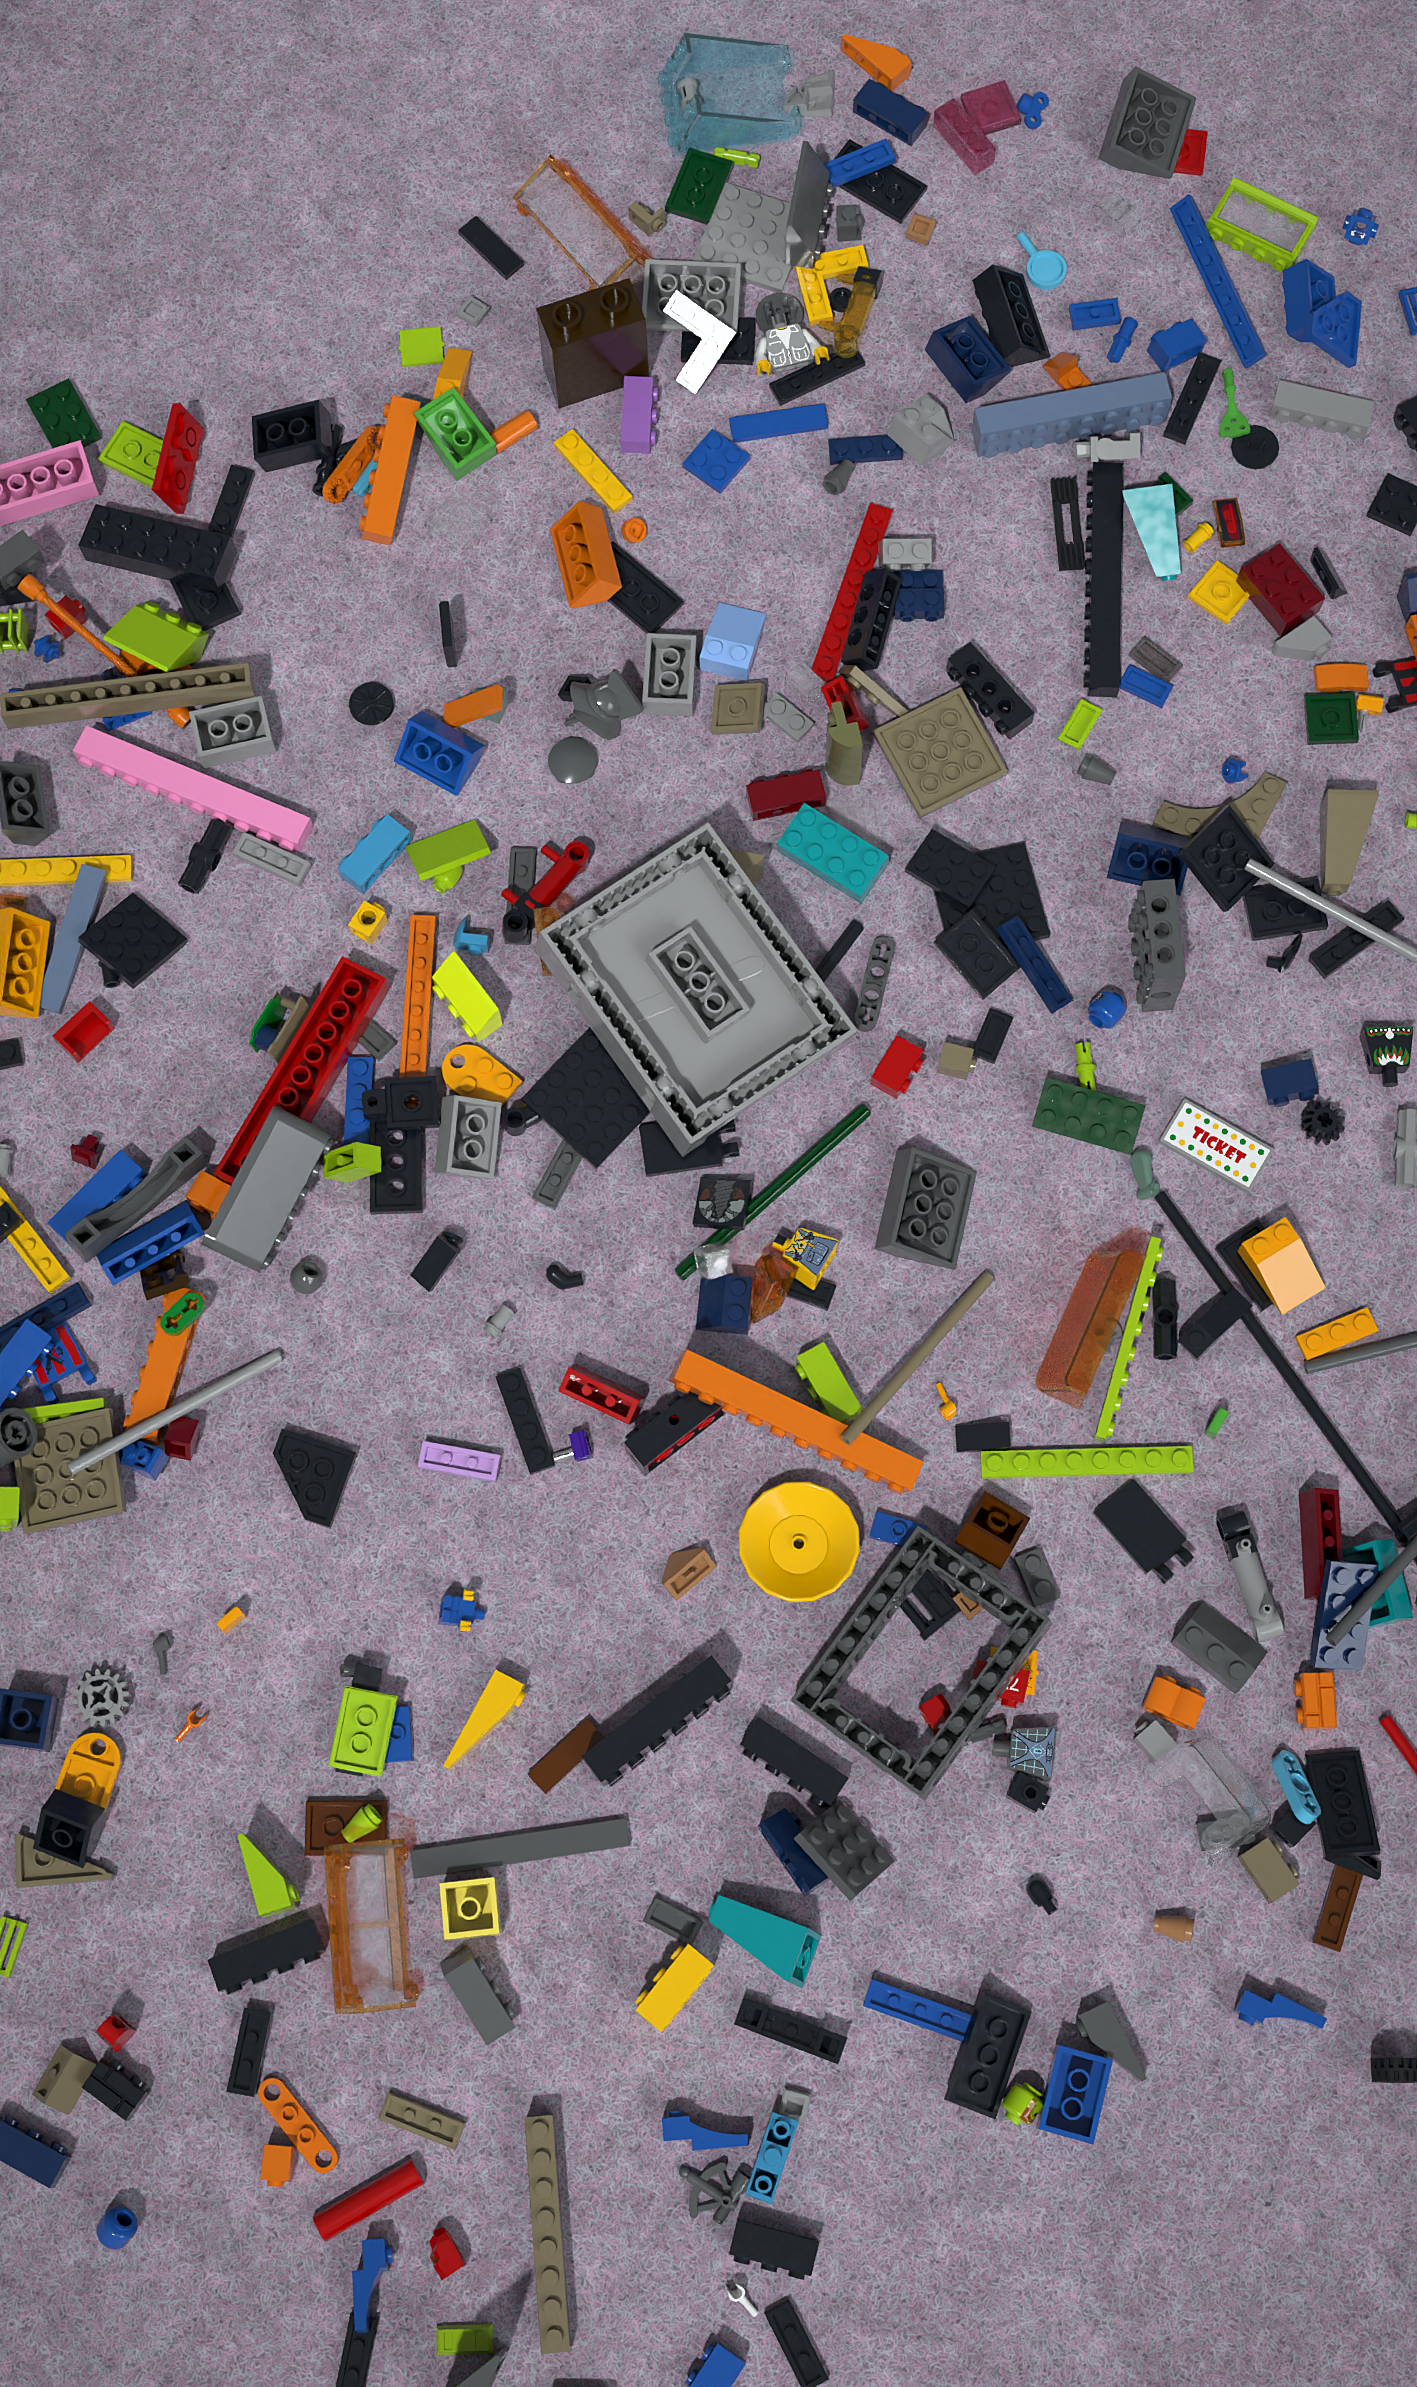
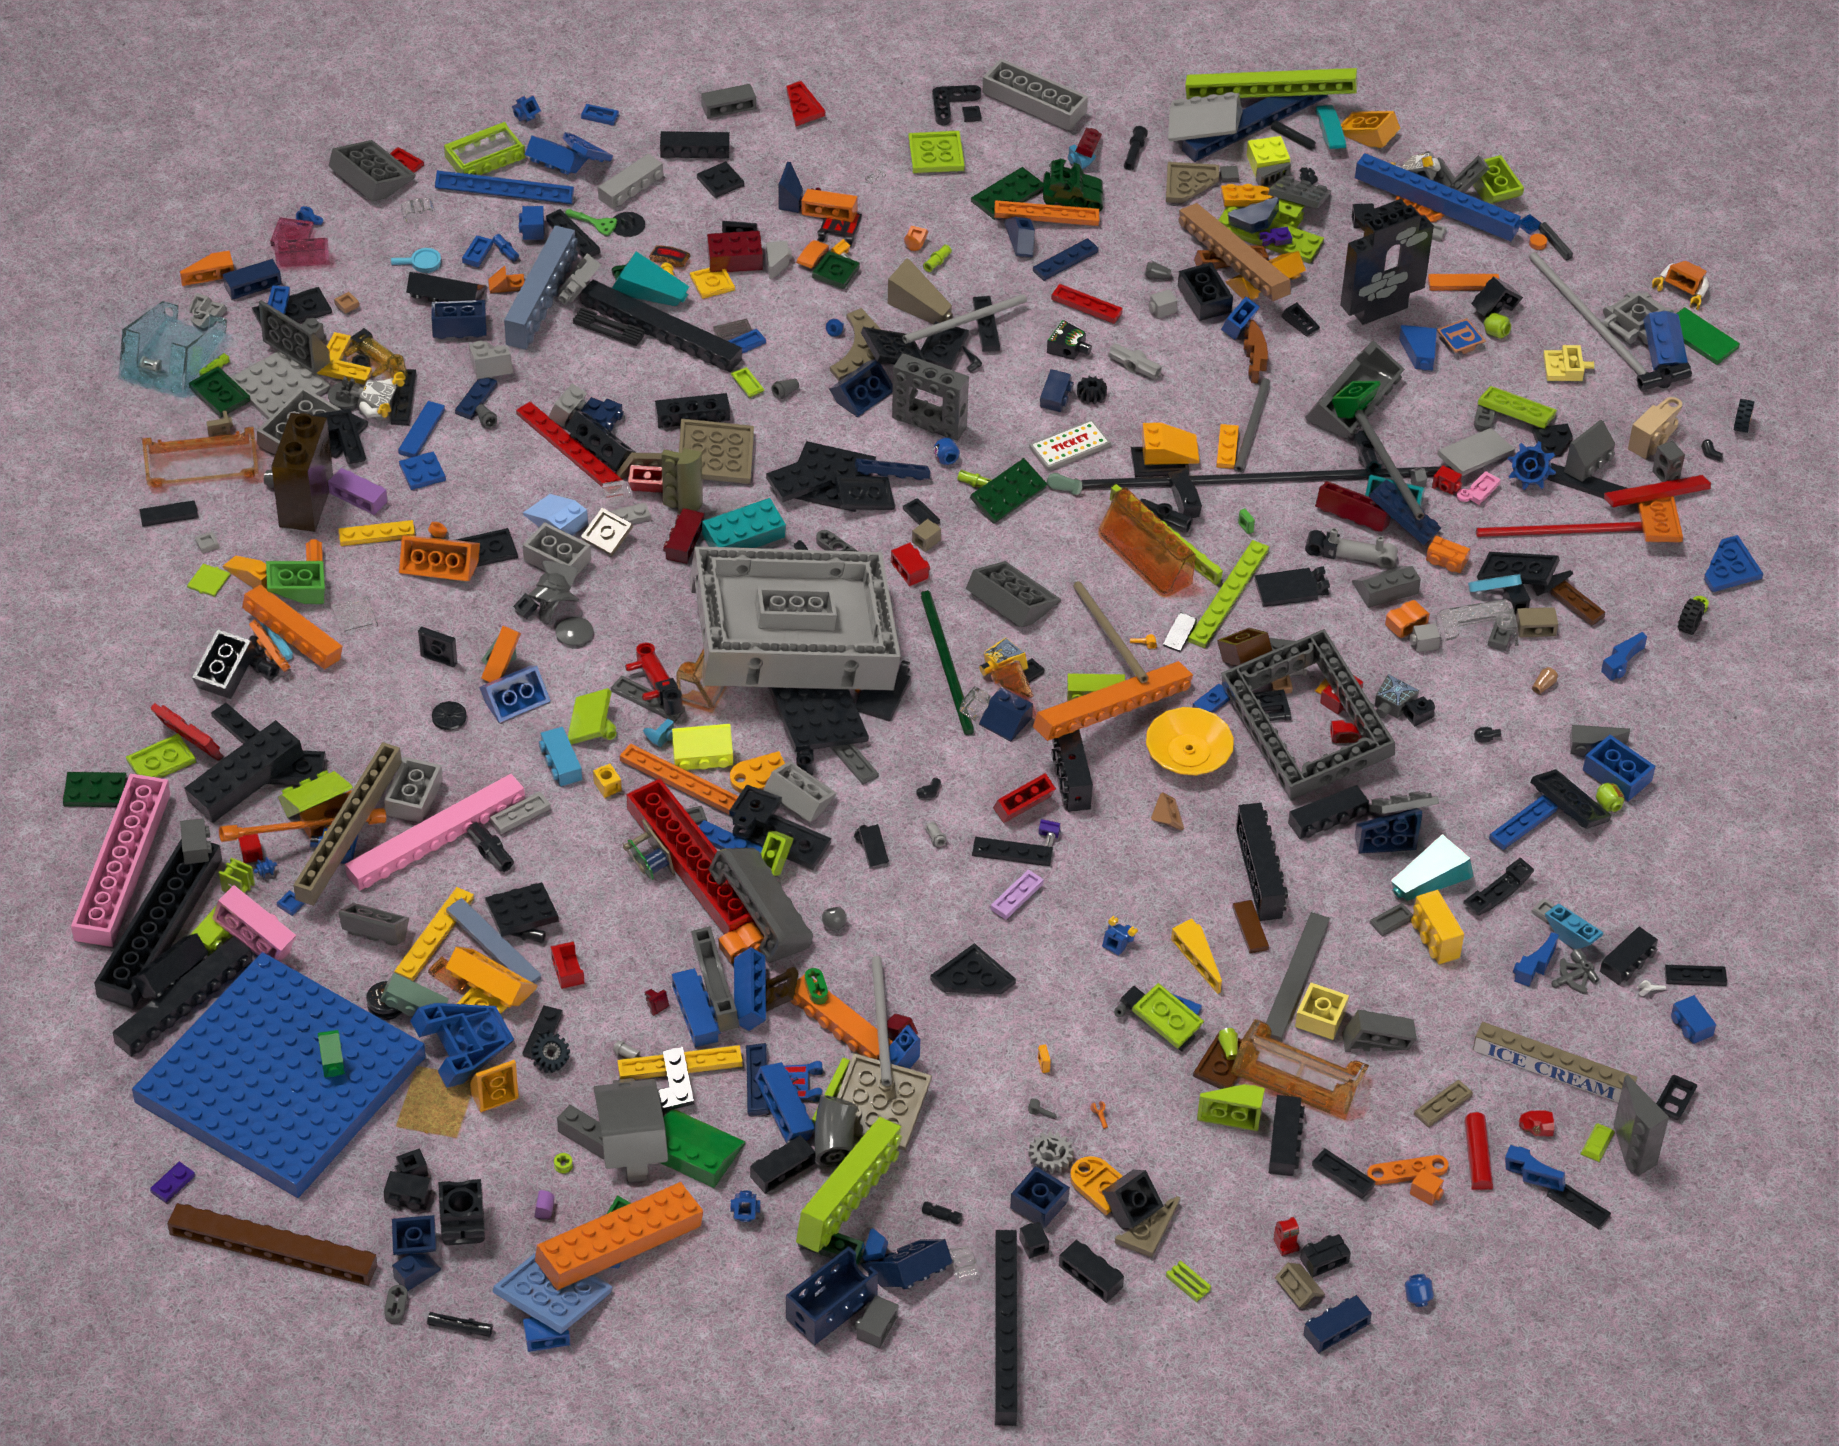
camera: 65 degrees left, 25 degrees down
(722, 1203) = (938, 686): black tile -> none

